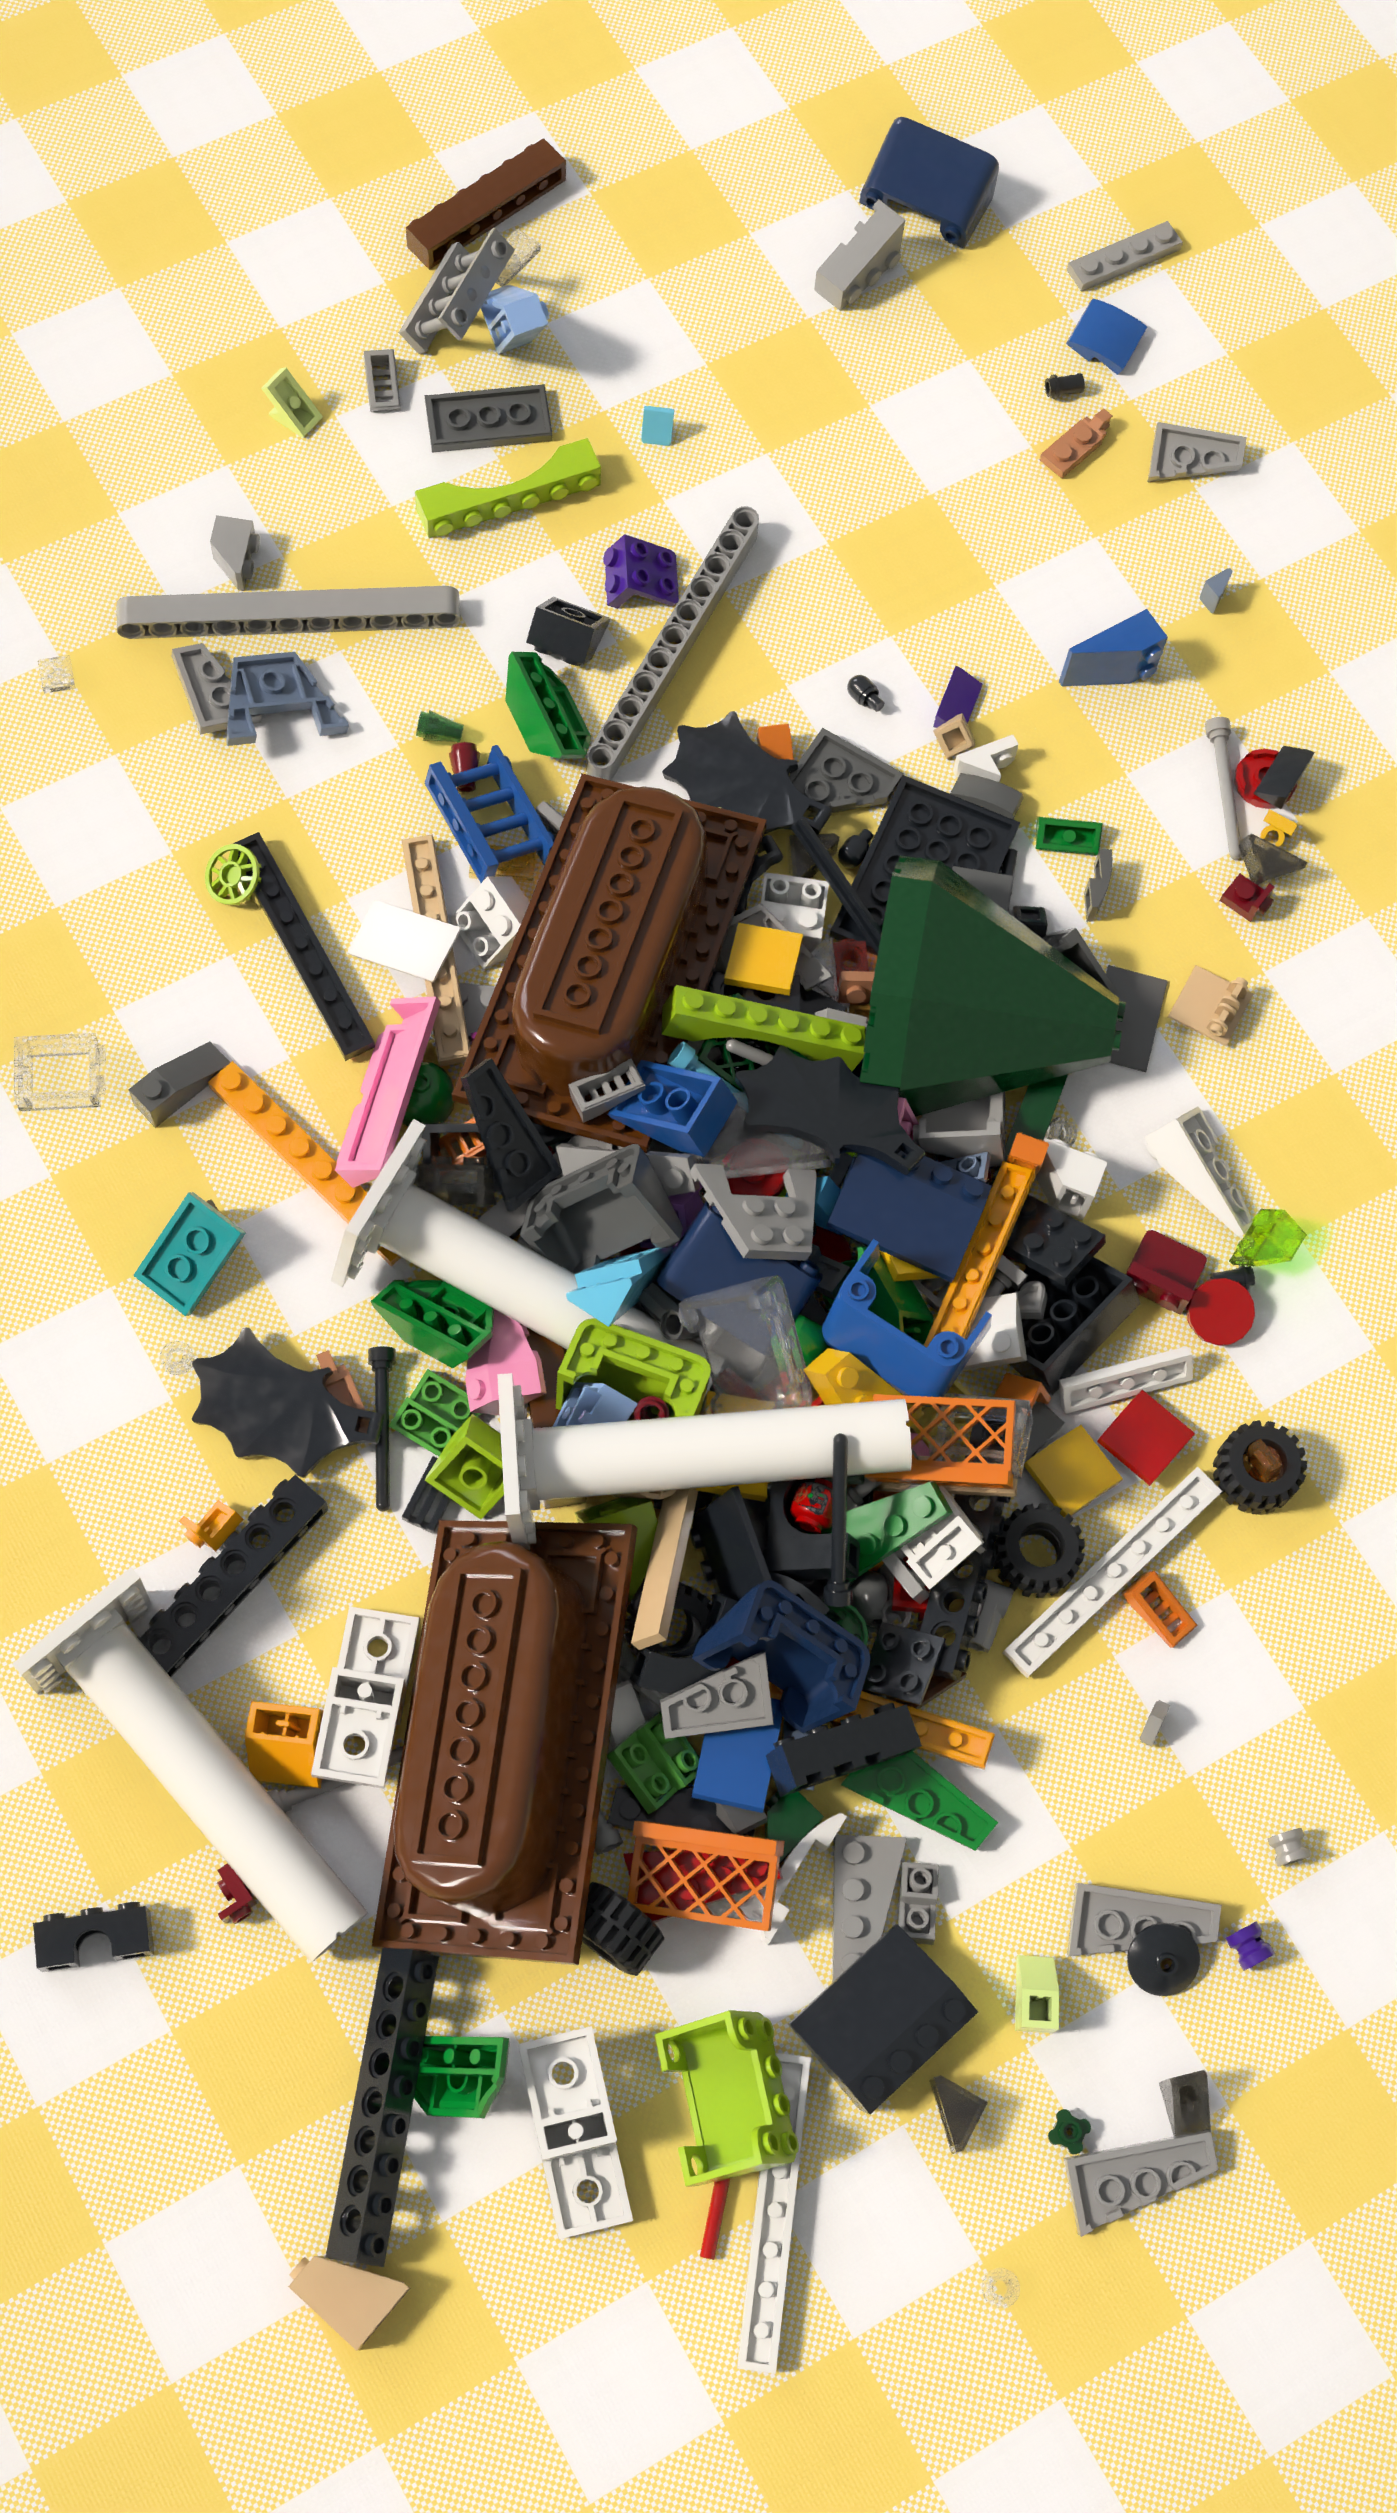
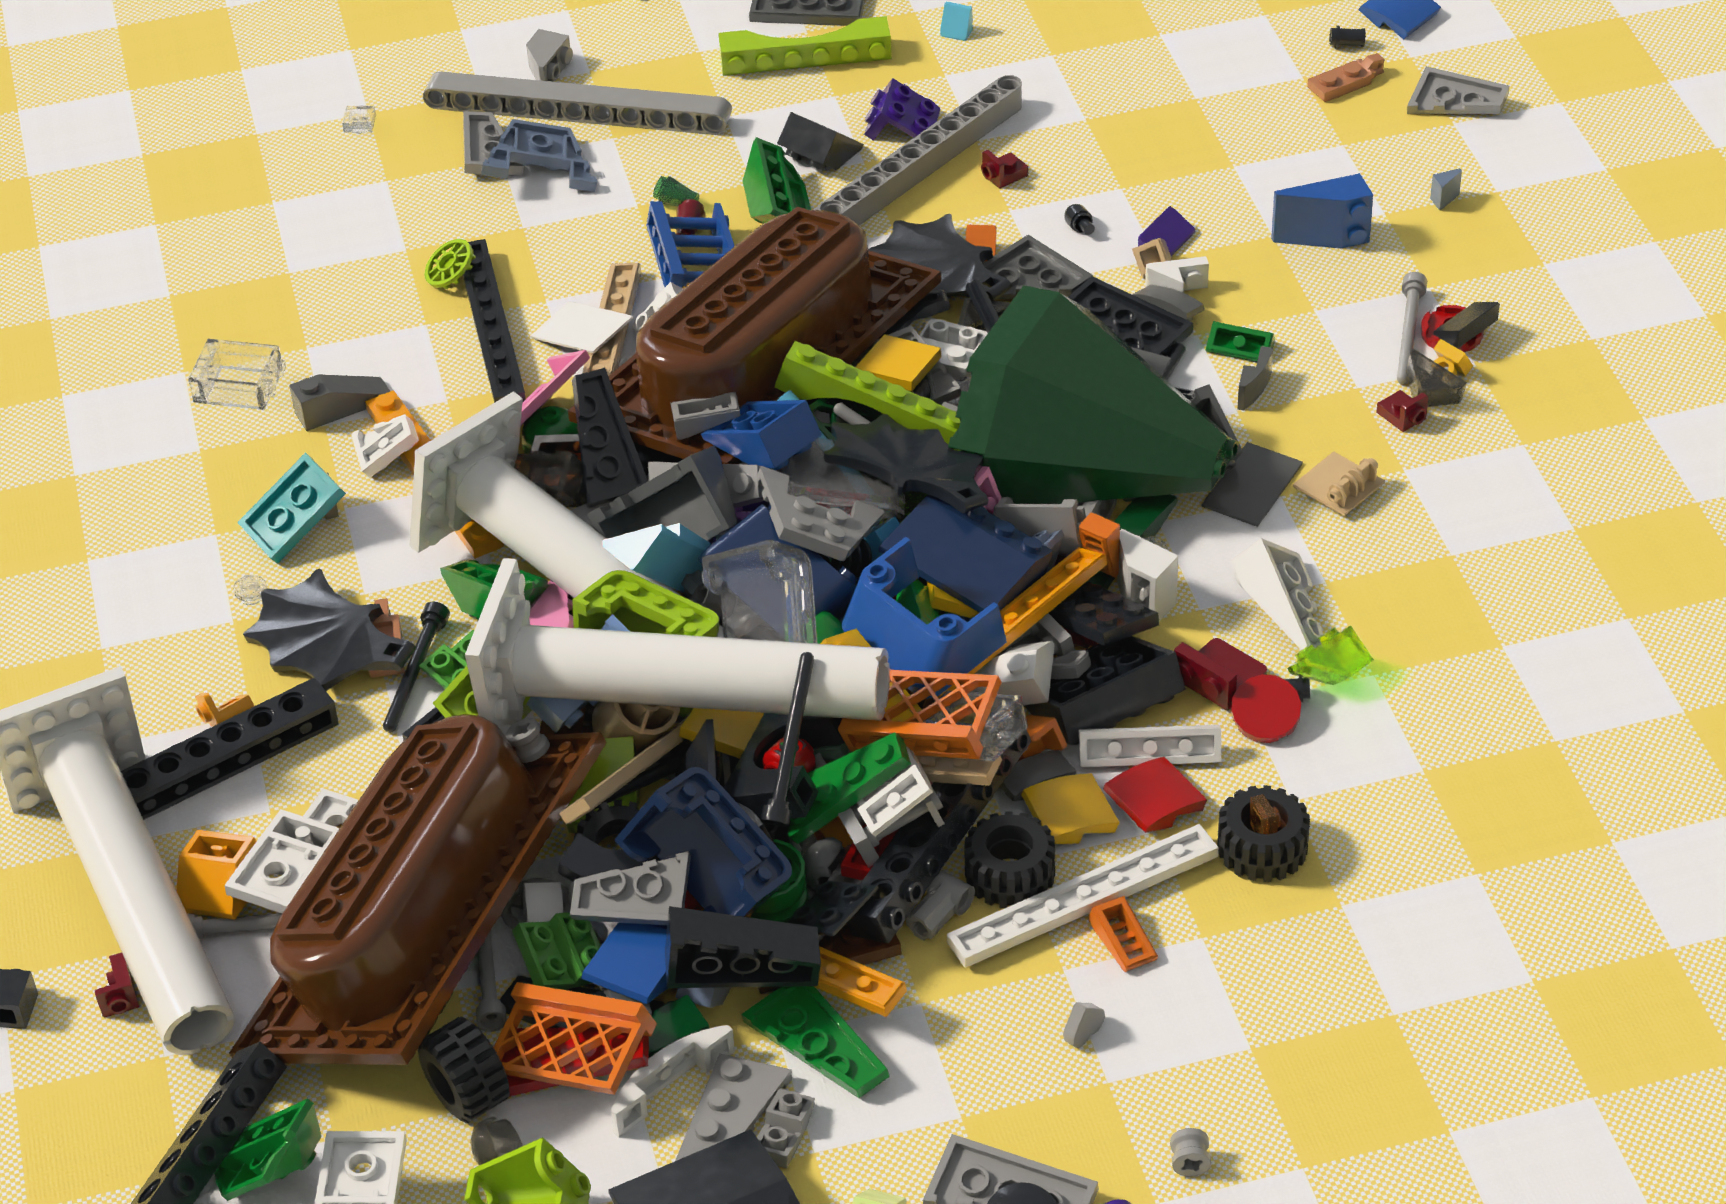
camera: 25 degrees right, 25 degrees down
(251, 1142) = (384, 444): none -> white wing
(560, 1548) = (527, 740): none -> light grey wheel
(668, 1997) = (493, 1139): none -> clear smoke hair
(767, 632) = (1004, 169): none -> dark red bracket

